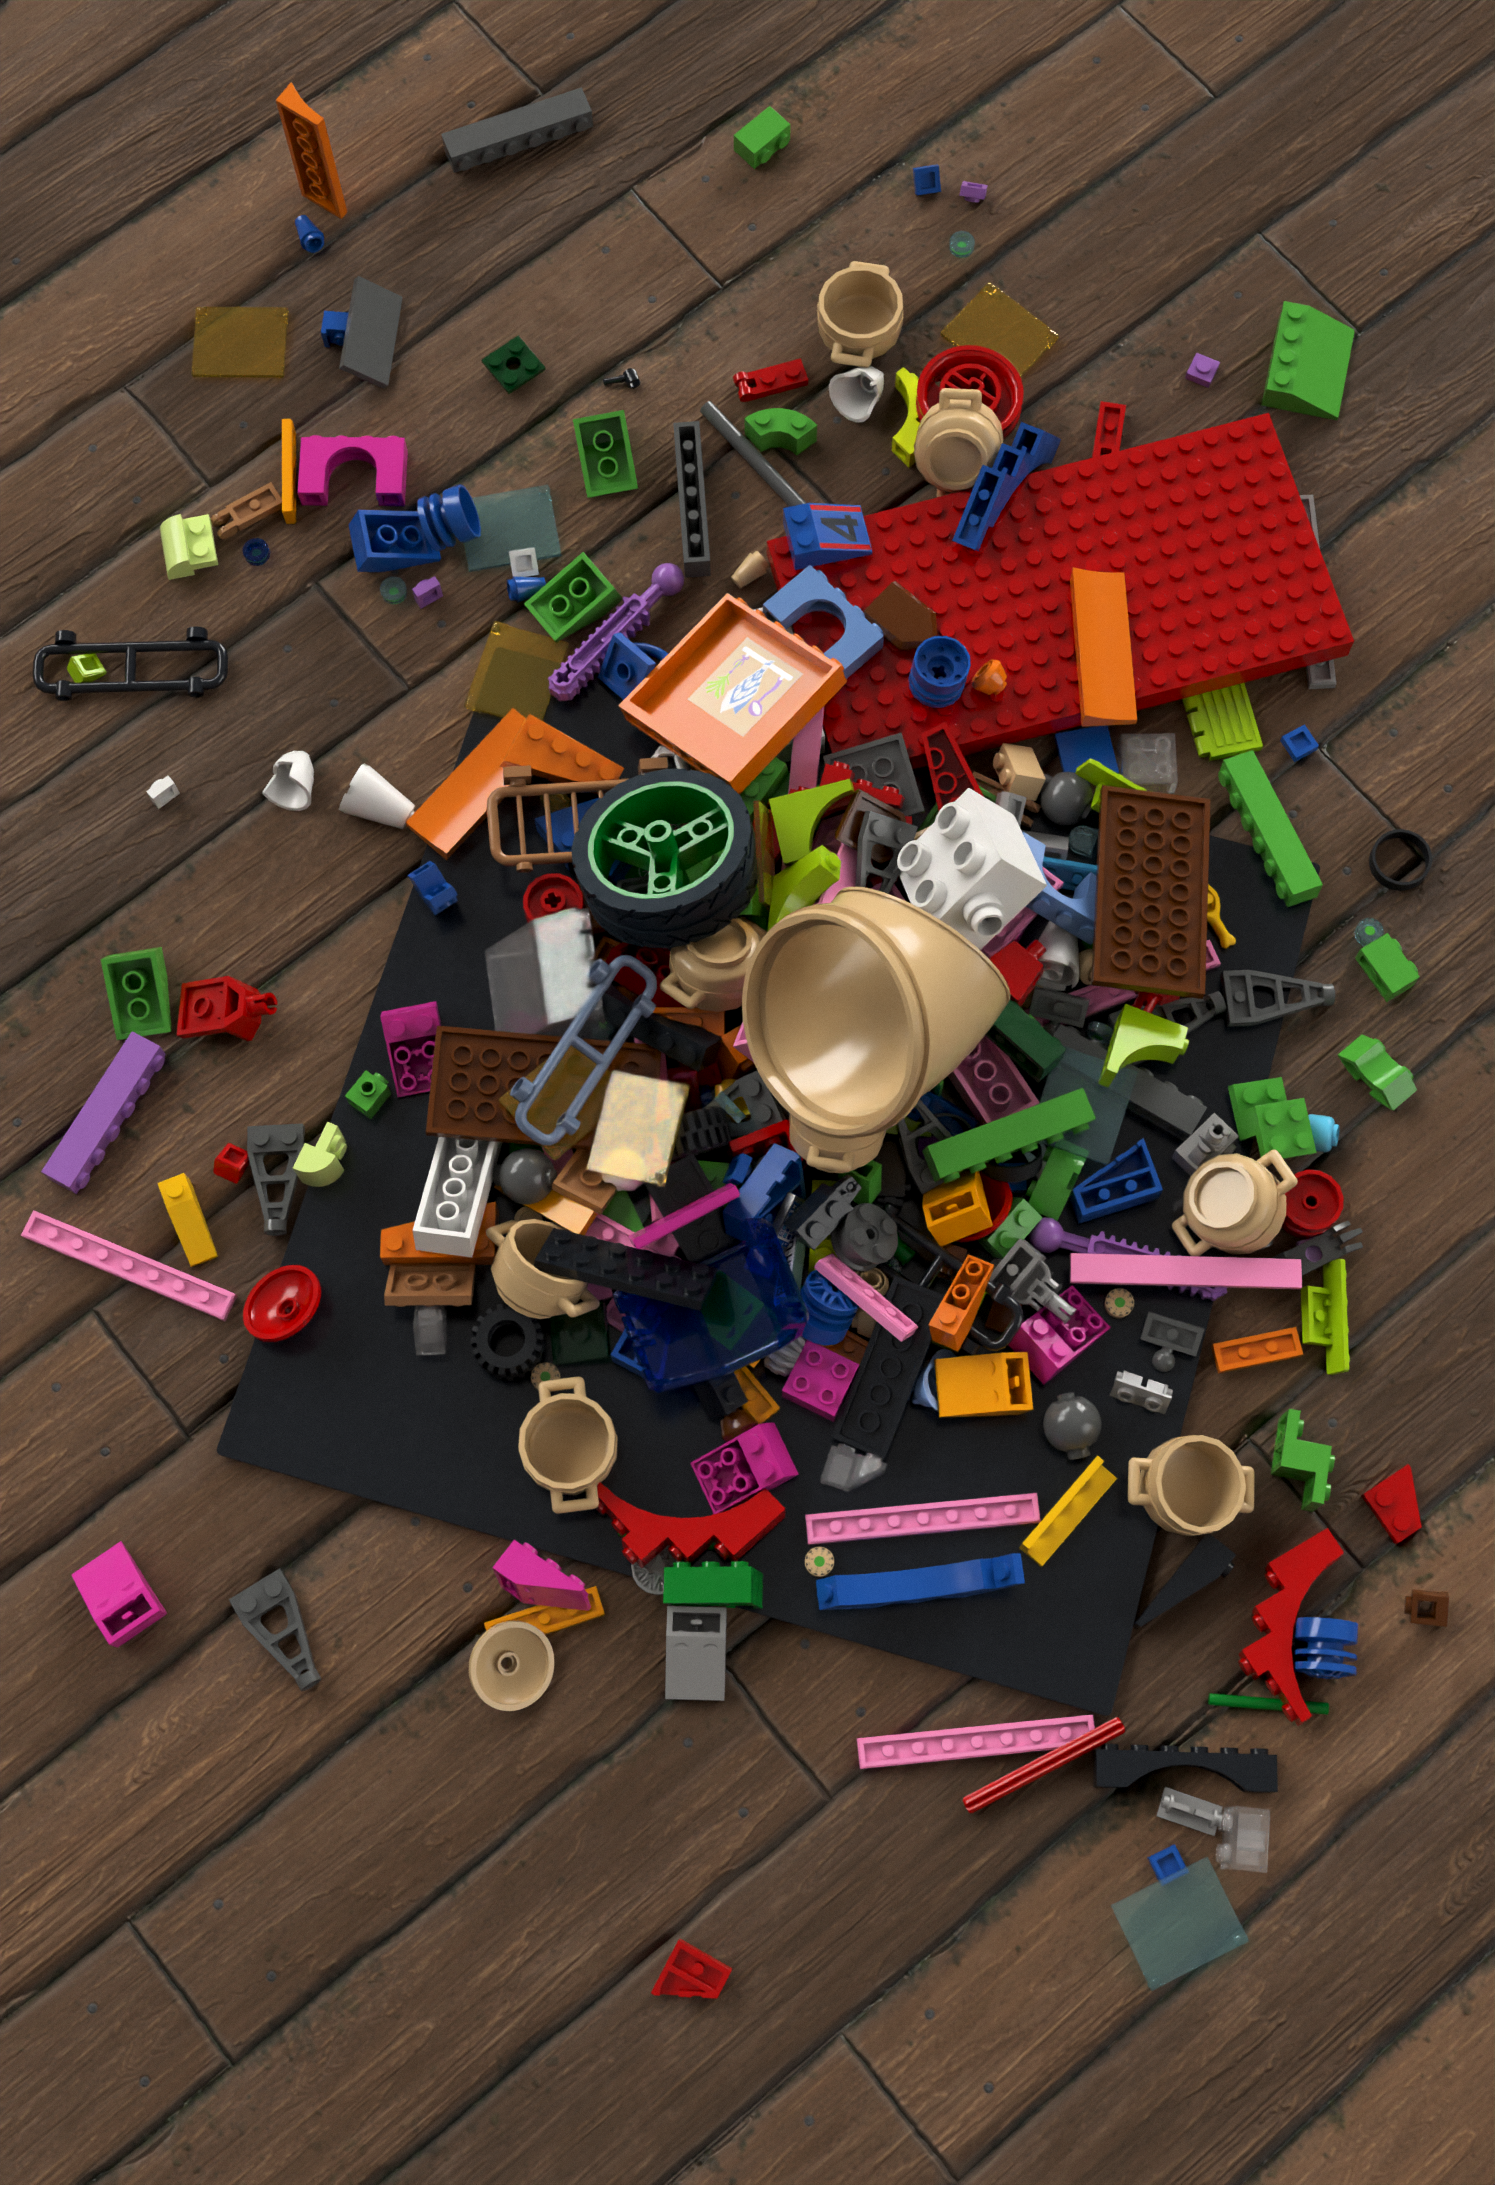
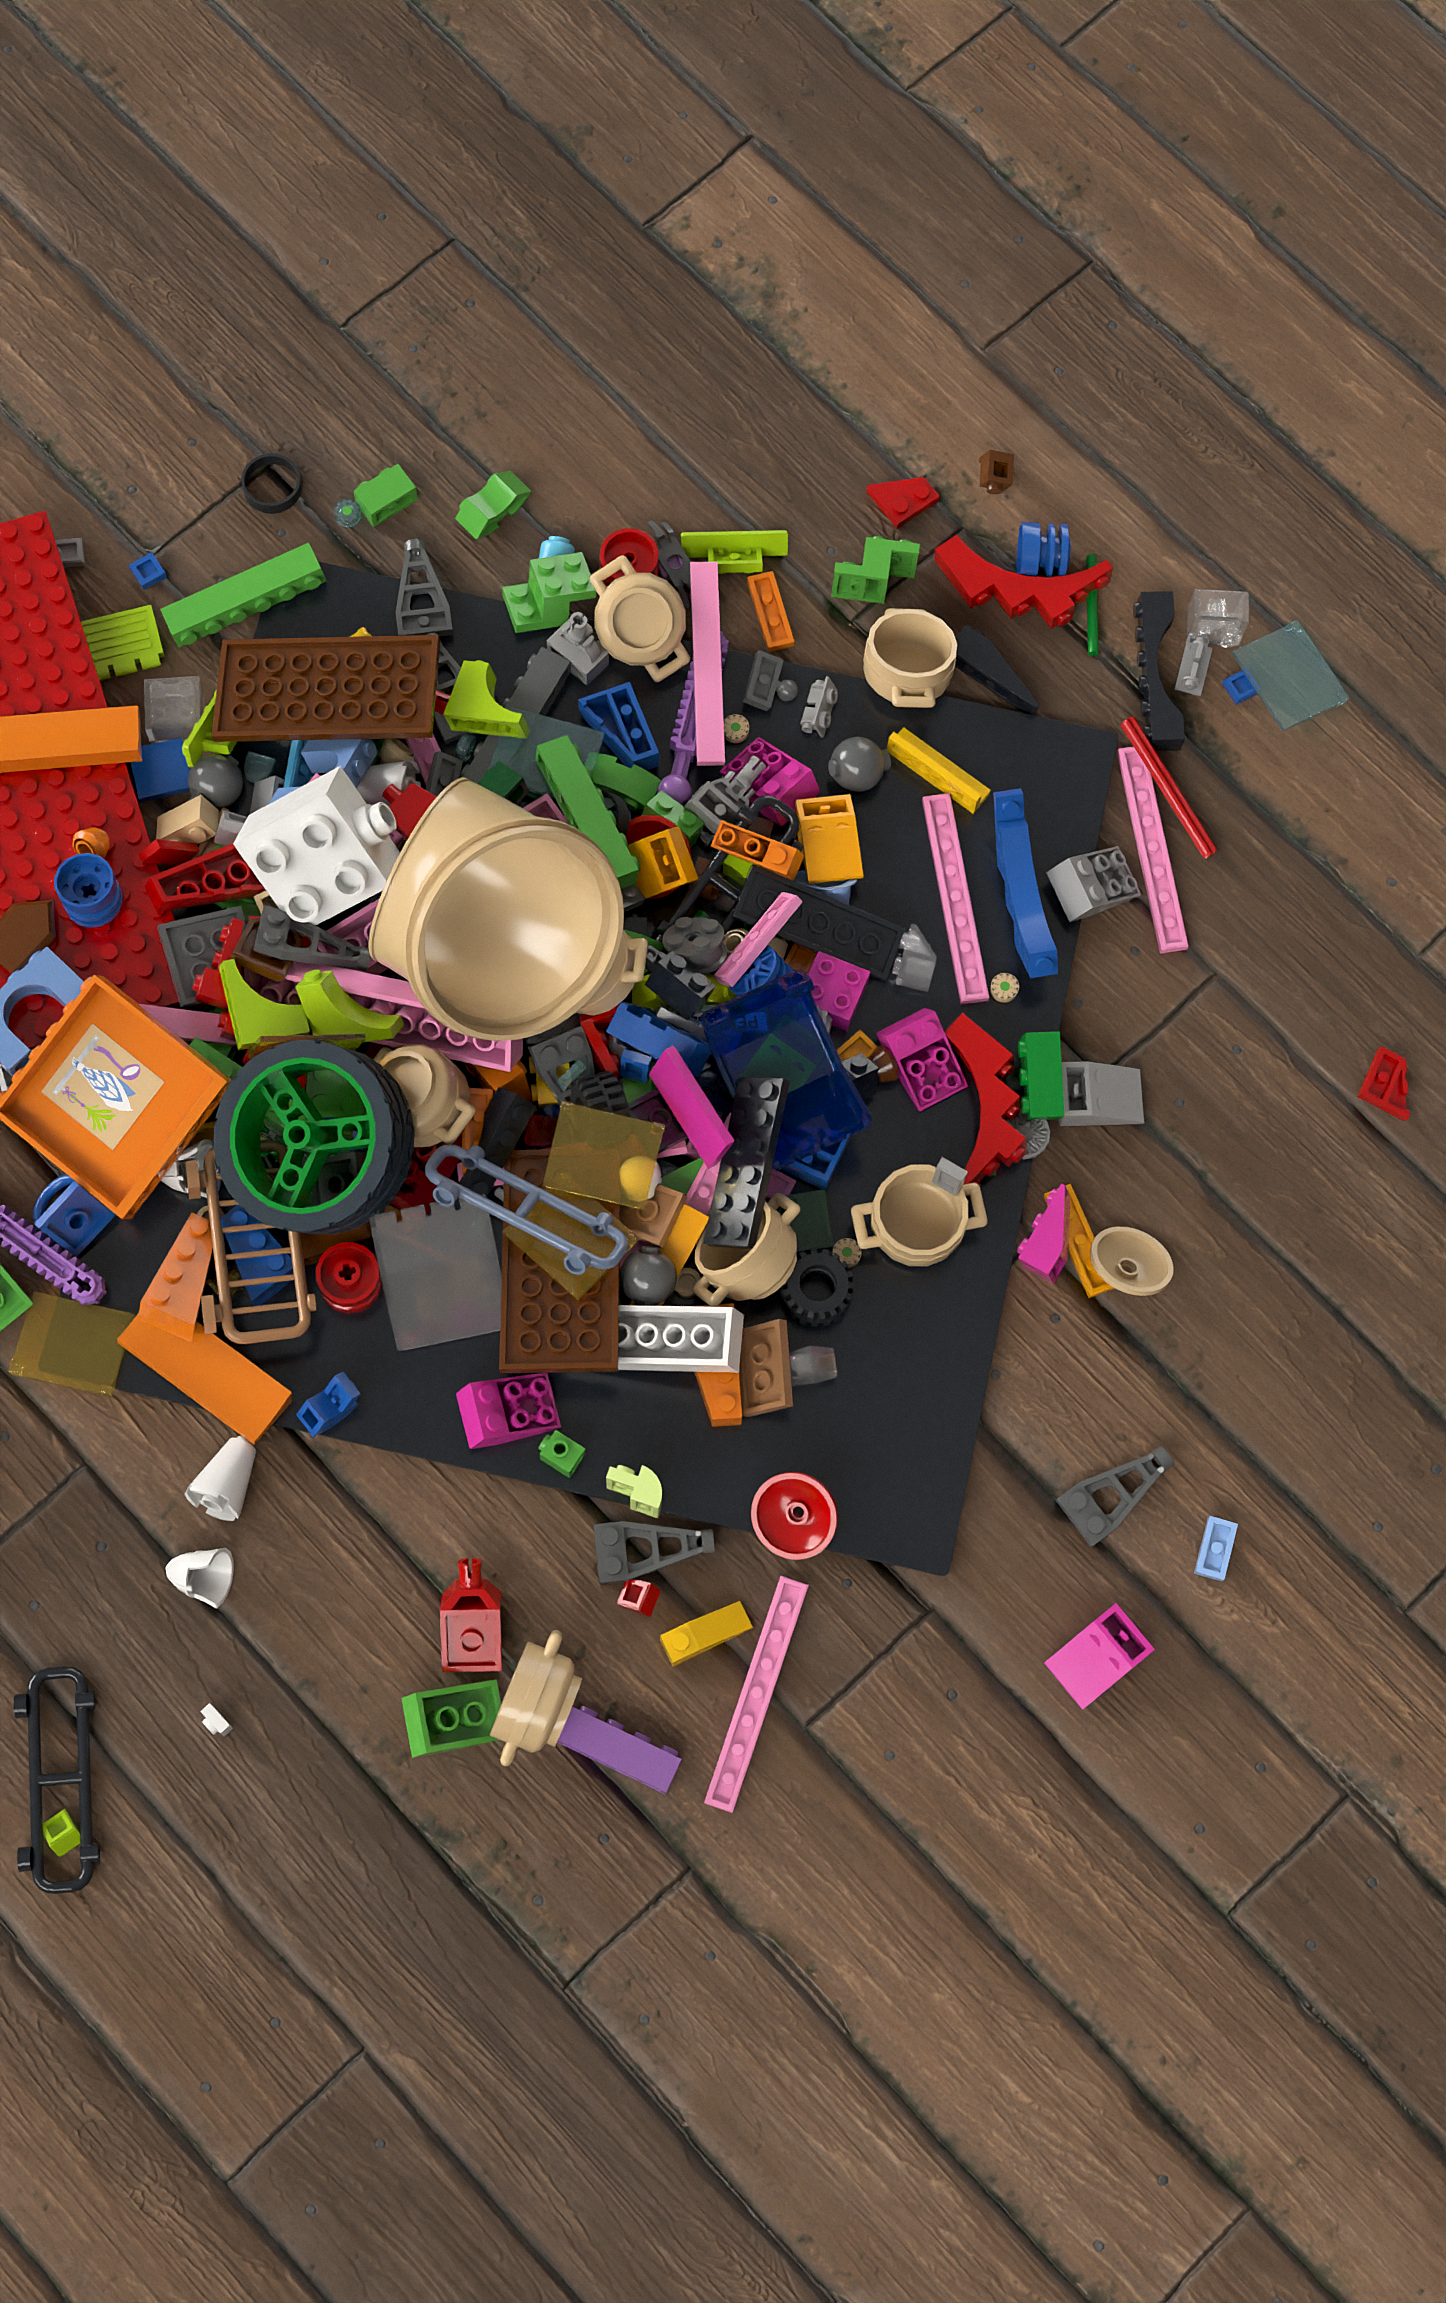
camera: 100 degrees left, 0 degrees up
(124, 1047) = (536, 1700): none -> tan piece
(211, 1726) = (1216, 1548): none -> light blue plate
(588, 1463) = (949, 1176): none -> light grey tile
(932, 1669) = (1093, 883): none -> light grey slope
(985, 750) = (168, 852): none -> red tile

